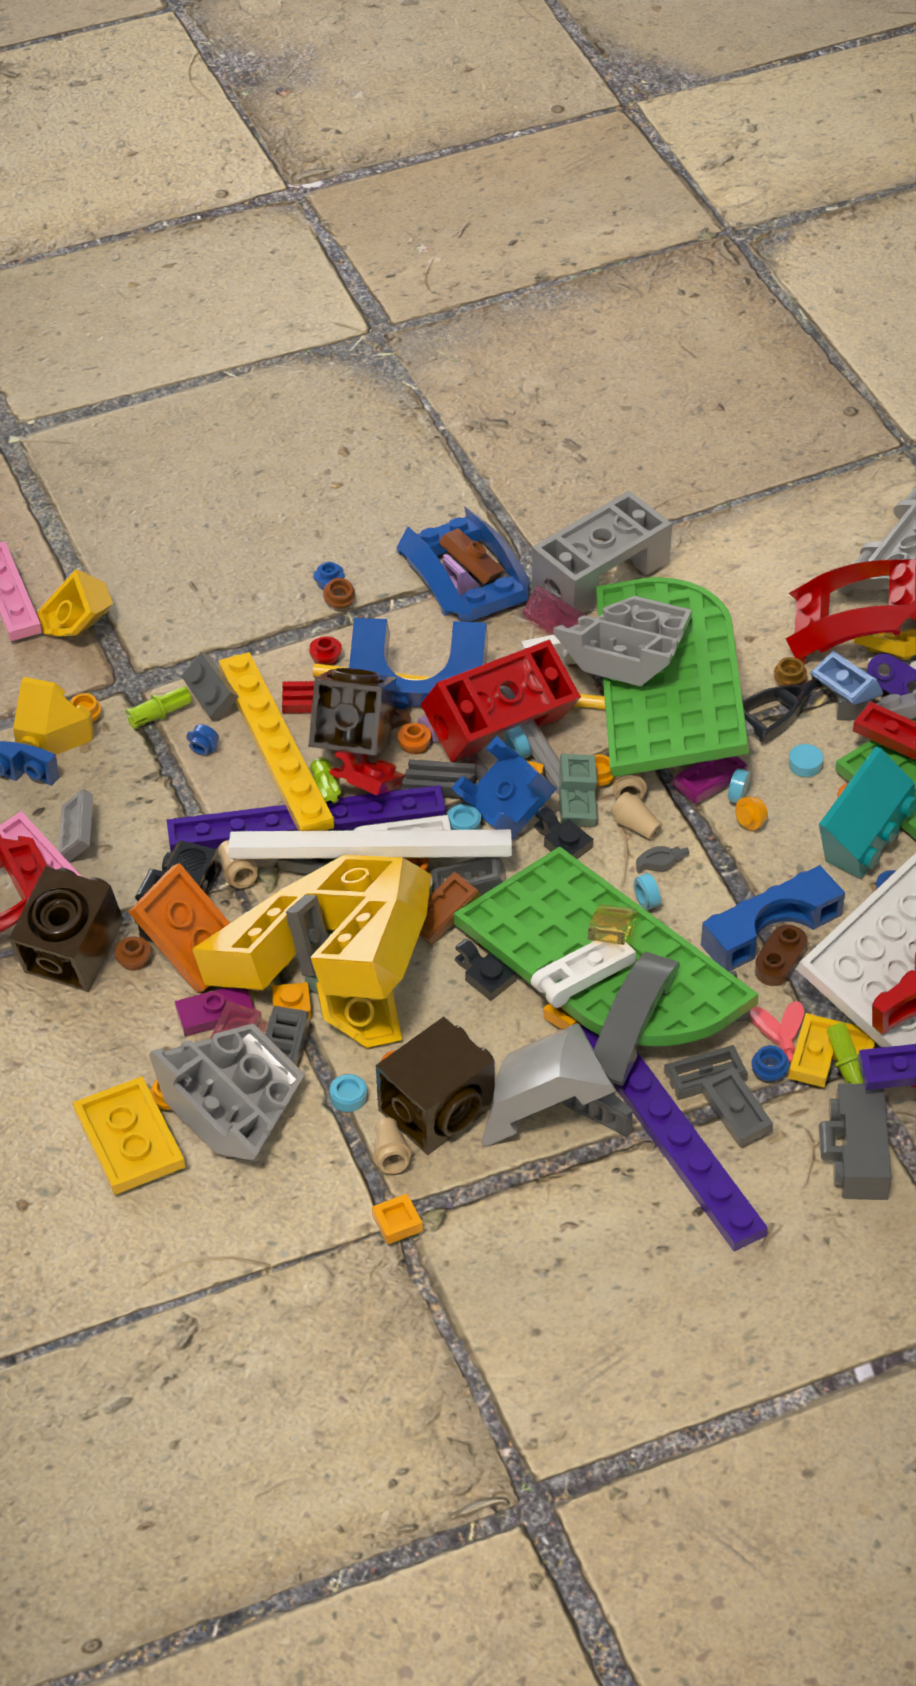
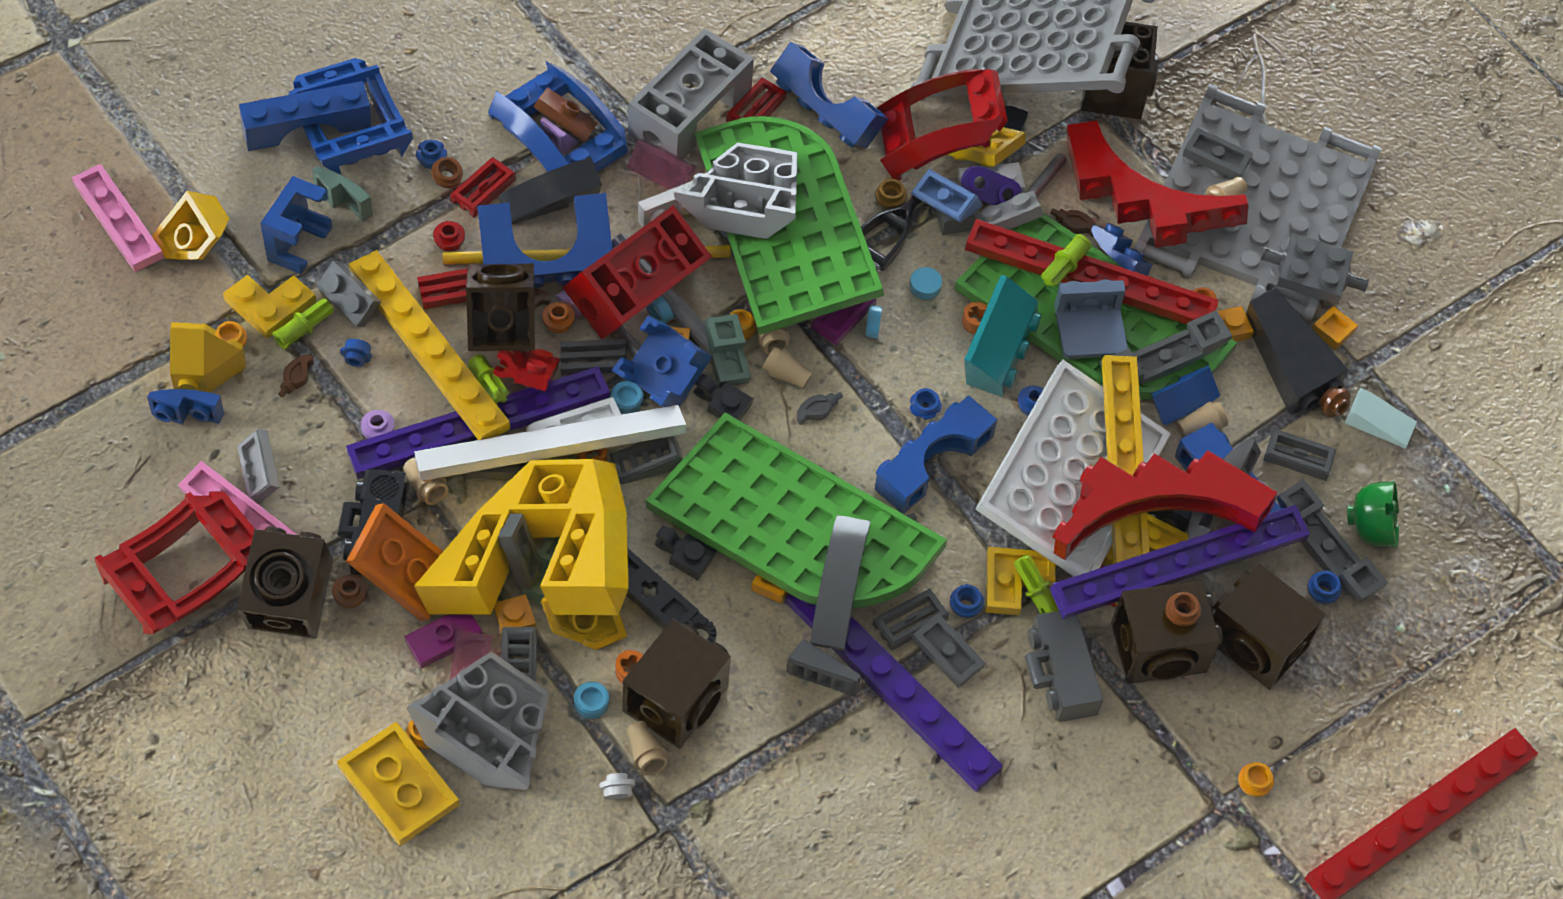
camera: 20 degrees left, 10 degrees up
(126, 691) = (268, 310): none -> yellow plate
(138, 752) = (295, 374): none -> reddish brown piece
(169, 610) = (287, 220): none -> blue panel
(204, 804) = (377, 416): none -> lavender plate
(228, 595) = (343, 190): none -> sand green slope
(247, 519) = (271, 119): none -> blue arch
(253, 556) = (363, 143): none -> blue wedge
(350, 1176) = (617, 786): none -> white plate
(389, 610) = (487, 189): none -> red tile
(397, 1219) = (671, 821): light orange plate -> none
(423, 982) = (667, 603): none -> black piece
(433, 621) = (552, 190): none -> black slope
(443, 902) = (636, 487): dark orange plate -> none
(543, 1076) = (773, 656): light grey wedge -> none
(581, 970) = (785, 541): white plate -> none
(612, 924) = (799, 491): clear yellow slope -> none
(647, 891) = (816, 445): medium azure tile -> none
(689, 572) = (767, 110): none -> red tile
(725, 550) = (802, 73): none -> blue arch
(751, 812) = (890, 347): light orange plate -> none
(774, 870) = (927, 397): none -> blue plate
(783, 1033) = (970, 565): coral piece -> none
(785, 949) = (951, 486): reddish brown plate -> none

